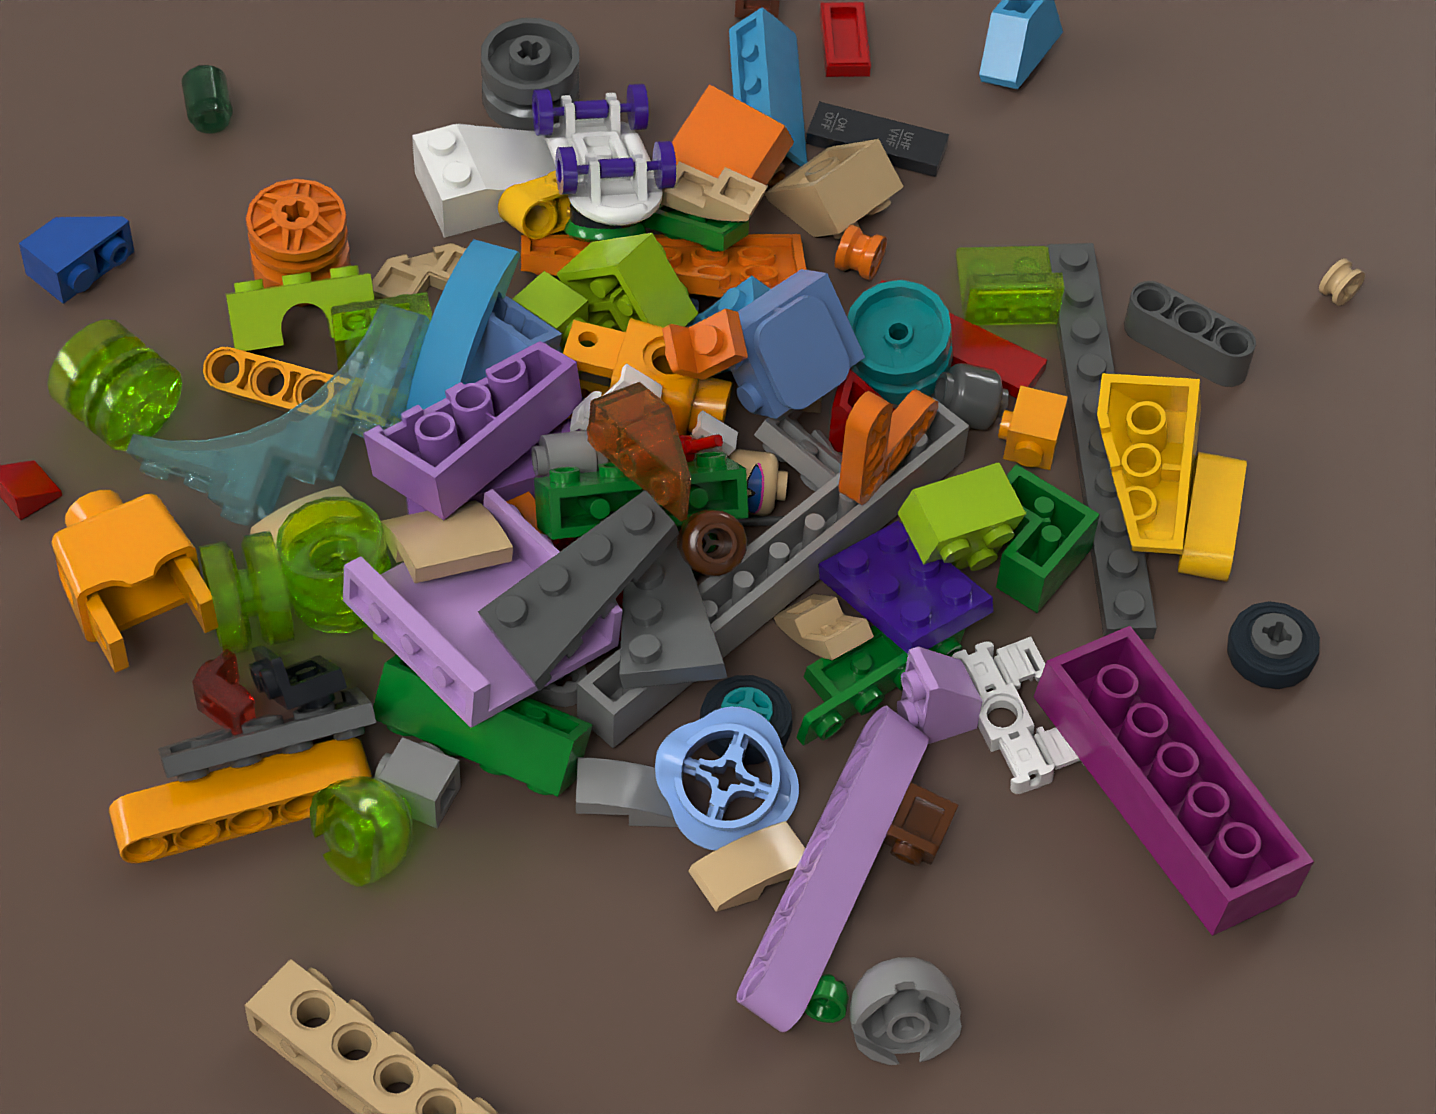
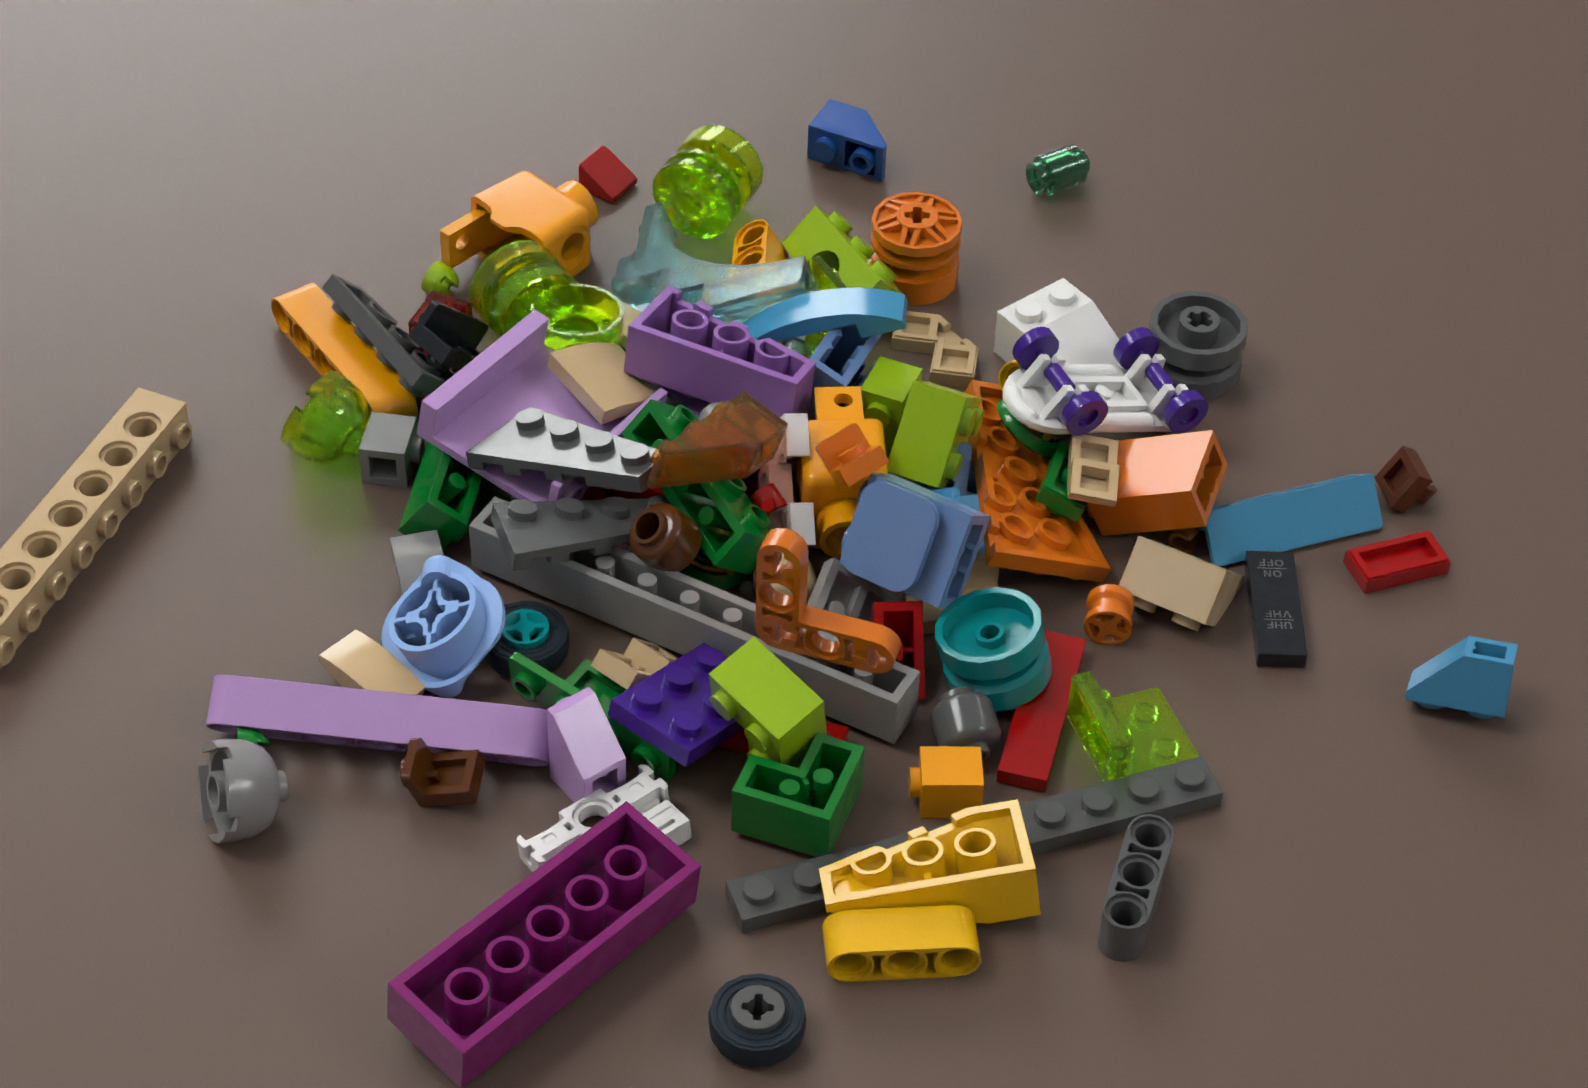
camera: 75 degrees right, 10 degrees down
(141, 682) = (440, 279): none -> lime hinge
(1342, 282) = (1281, 1012): tan bush -> none

